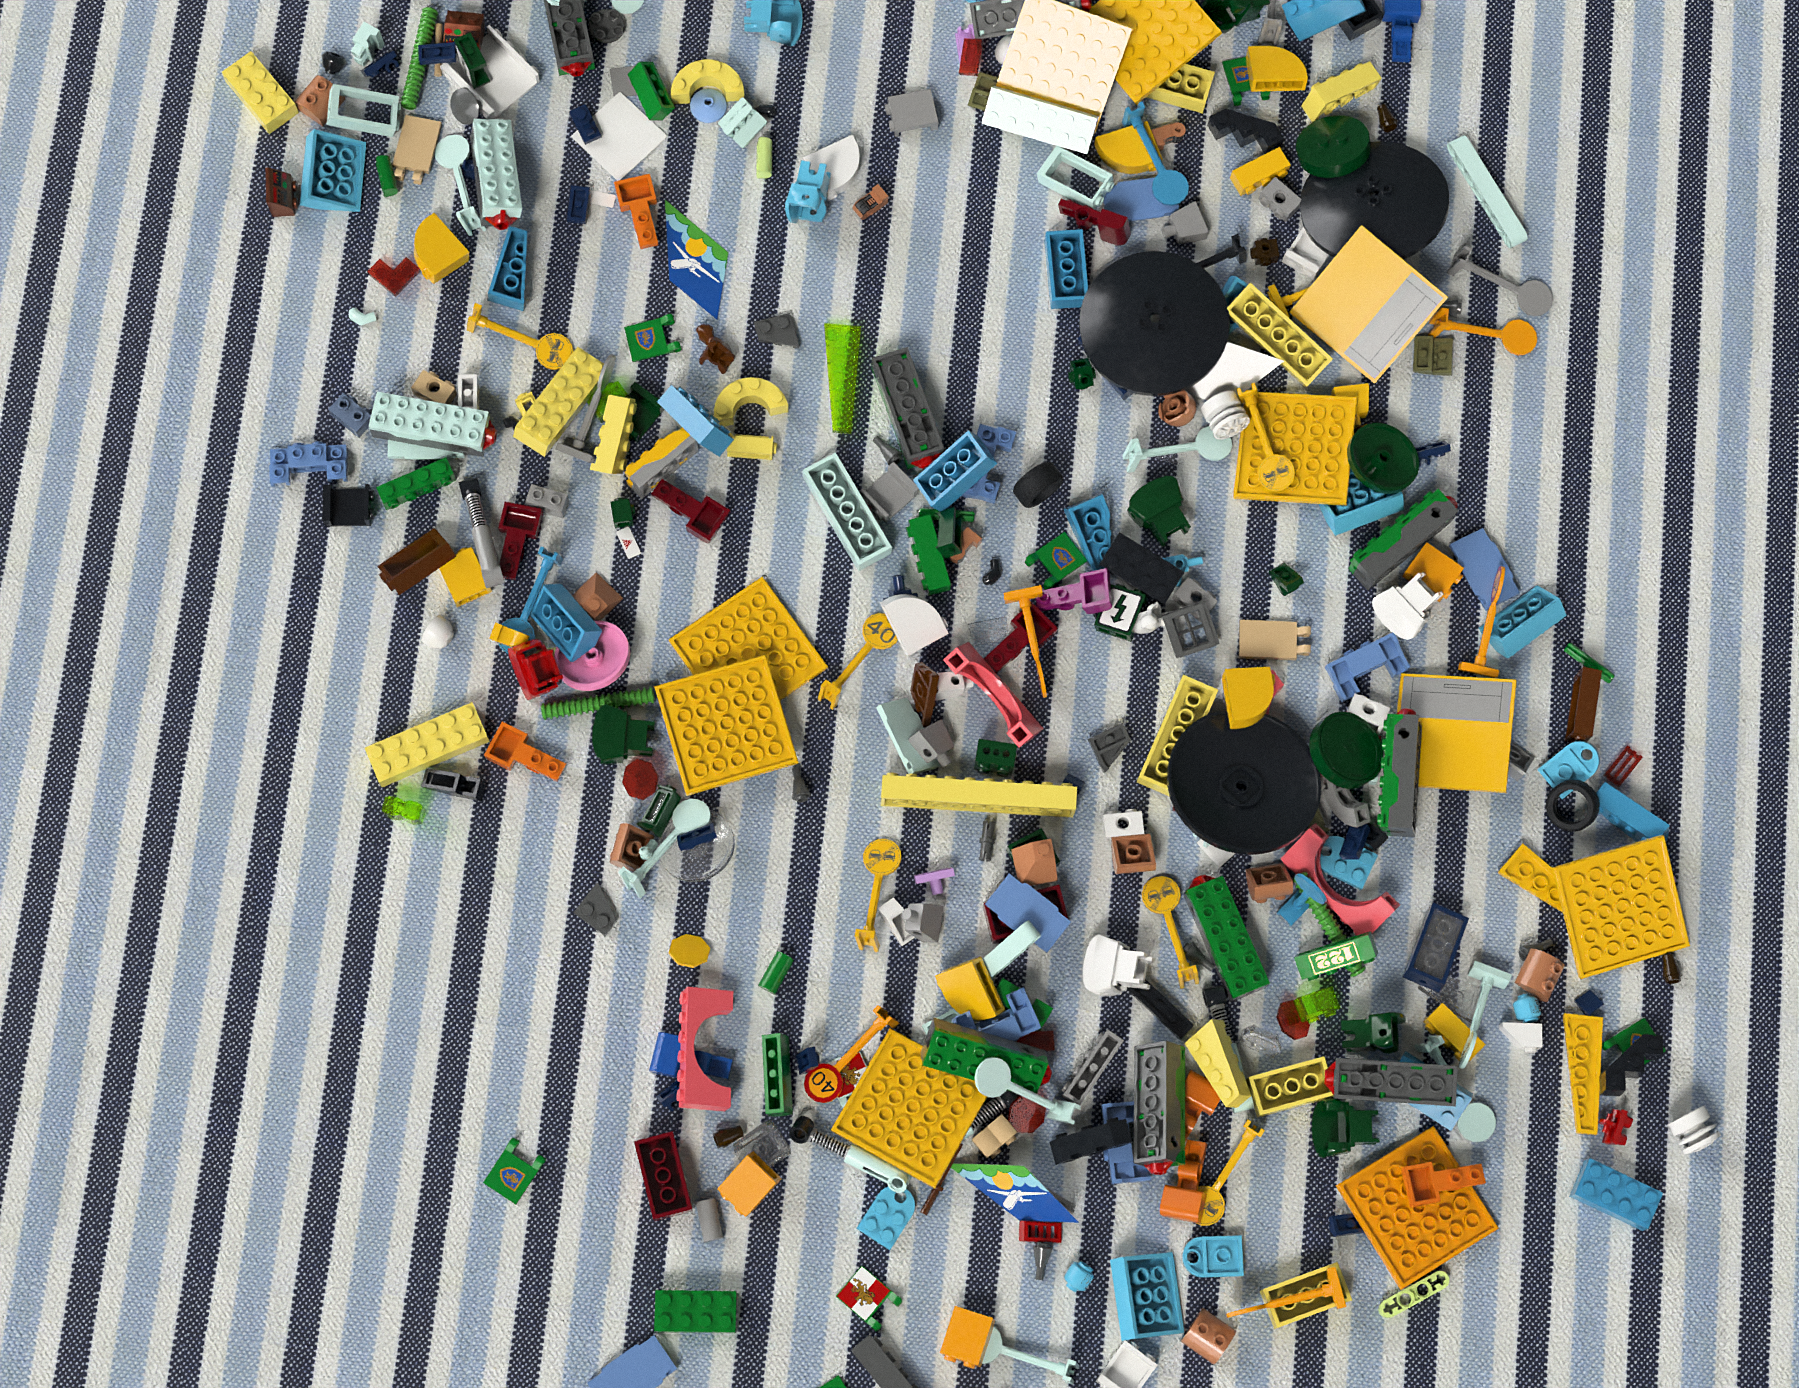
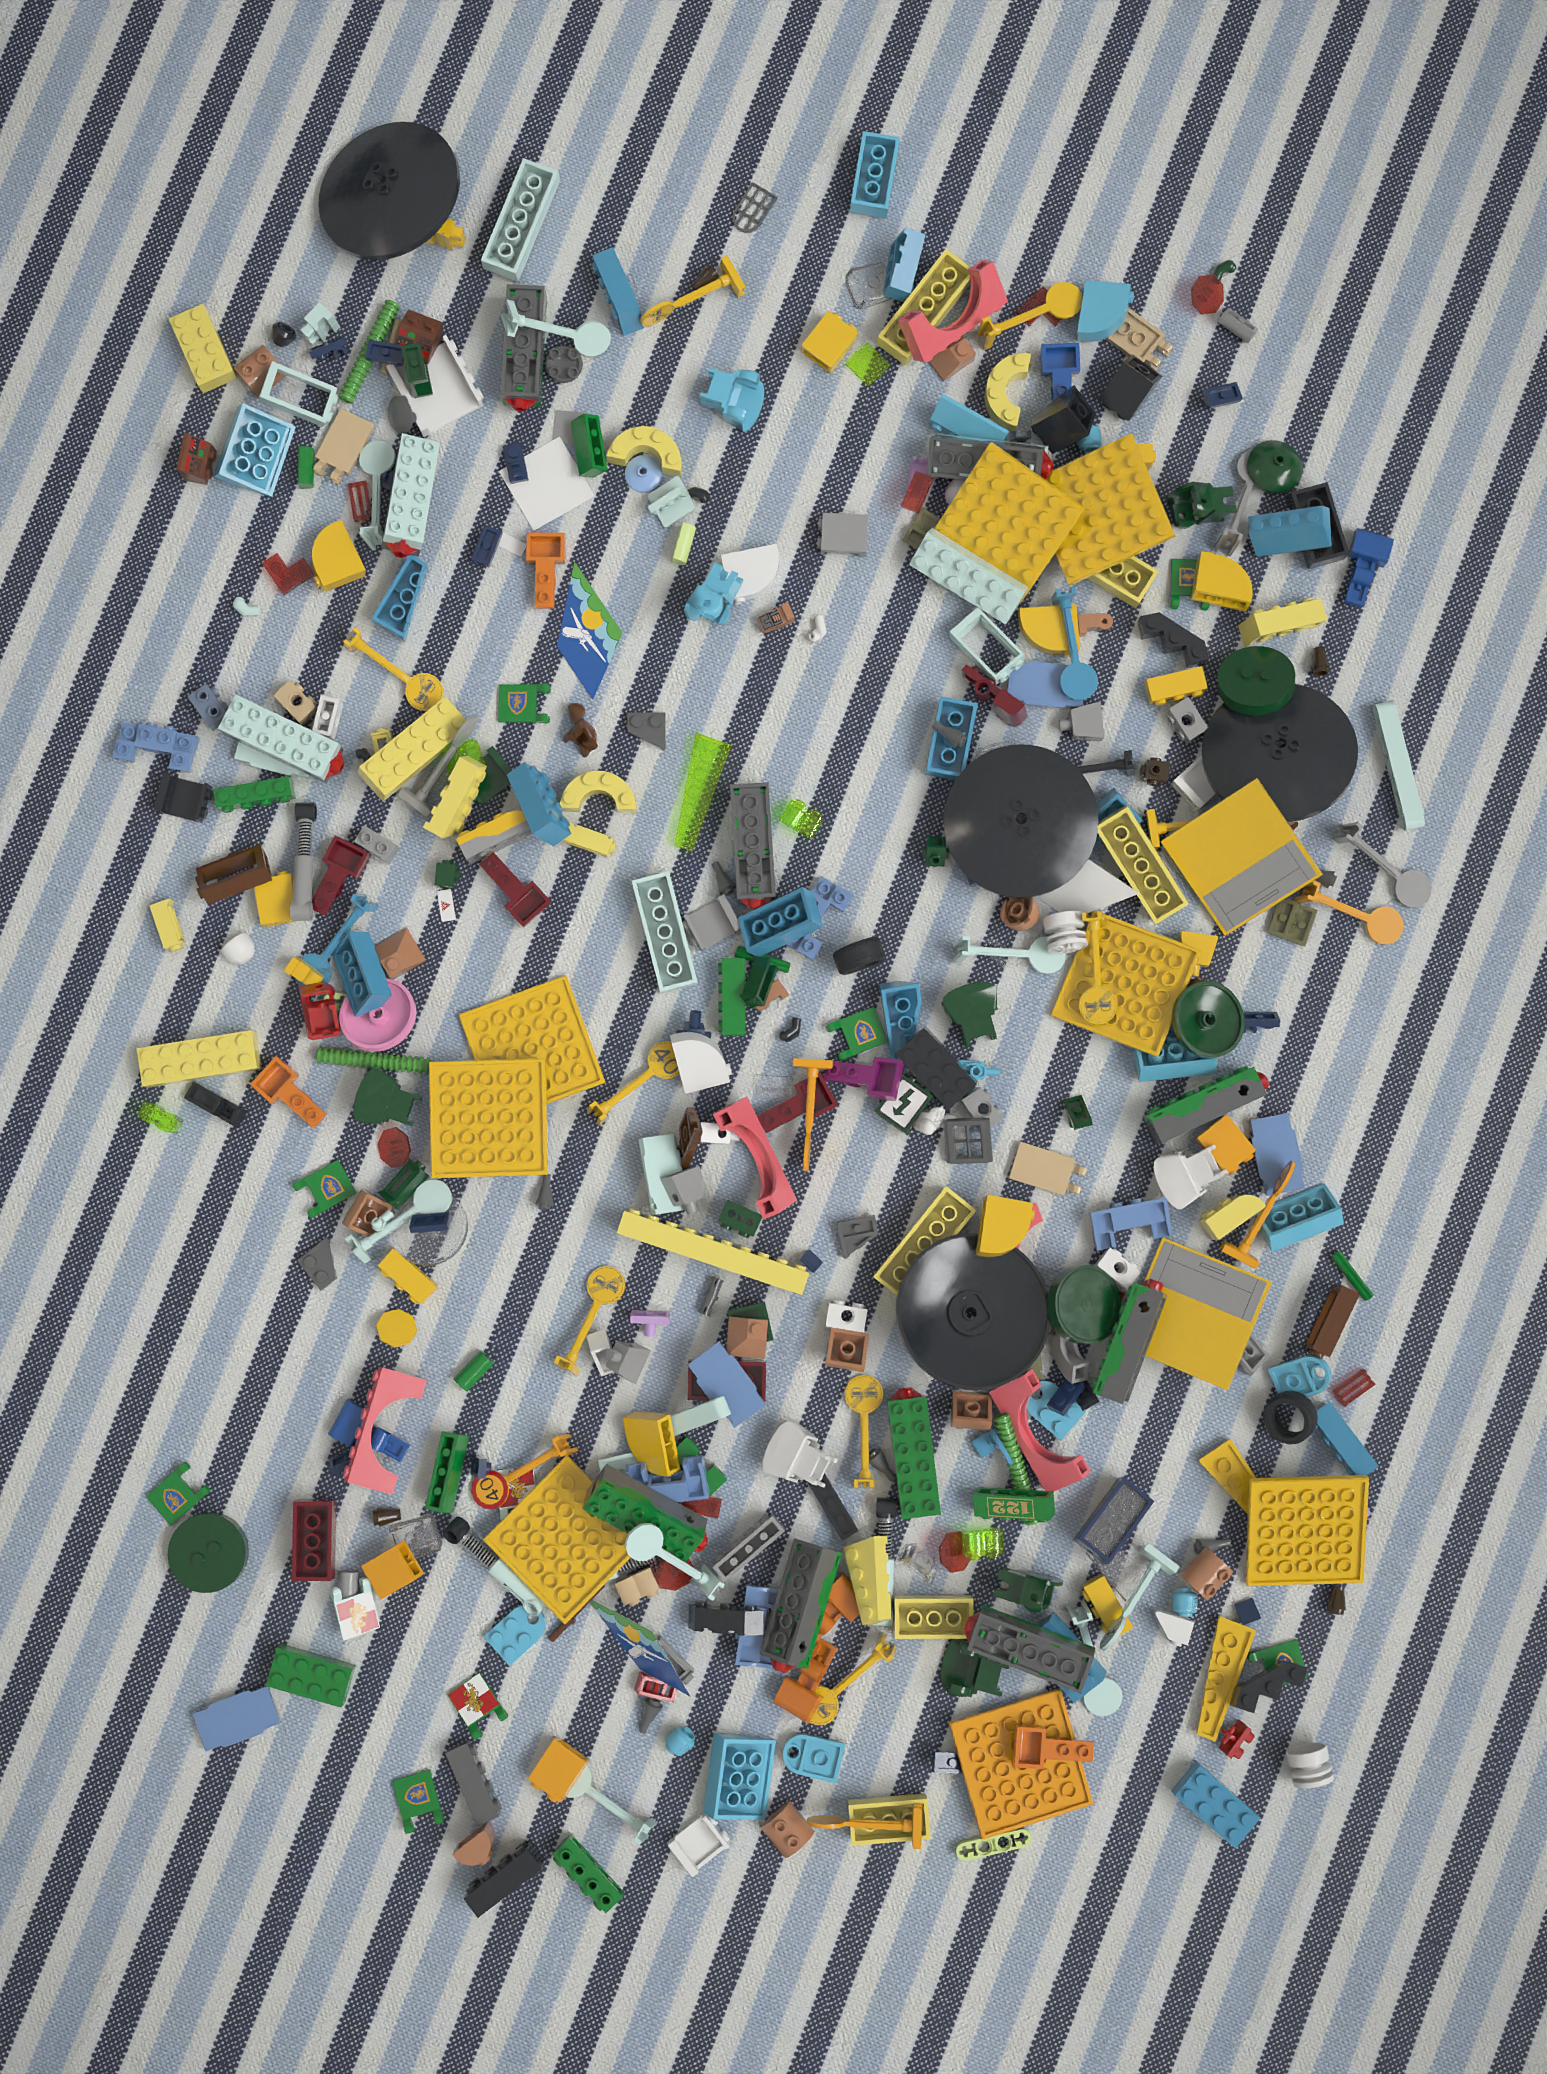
camera: 20 degrees right, 10 degrees up
(363, 627) = (167, 925): none -> light yellow window
(451, 207) = (363, 516): none -> clear red tile
(560, 1219) = (208, 1552): none -> dark green brick
(585, 835) = (328, 1187): none -> green flag
(686, 898) = (407, 1277): none -> yellow brick
(724, 1236) = (355, 1613): none -> flag
(914, 204) = (820, 630): none -> white arm
(947, 377) = (802, 819): none -> clear neon green brick
(1069, 262) = (954, 736): none -> dark grey cone
(1457, 632) = (1230, 1214): none -> light yellow brick

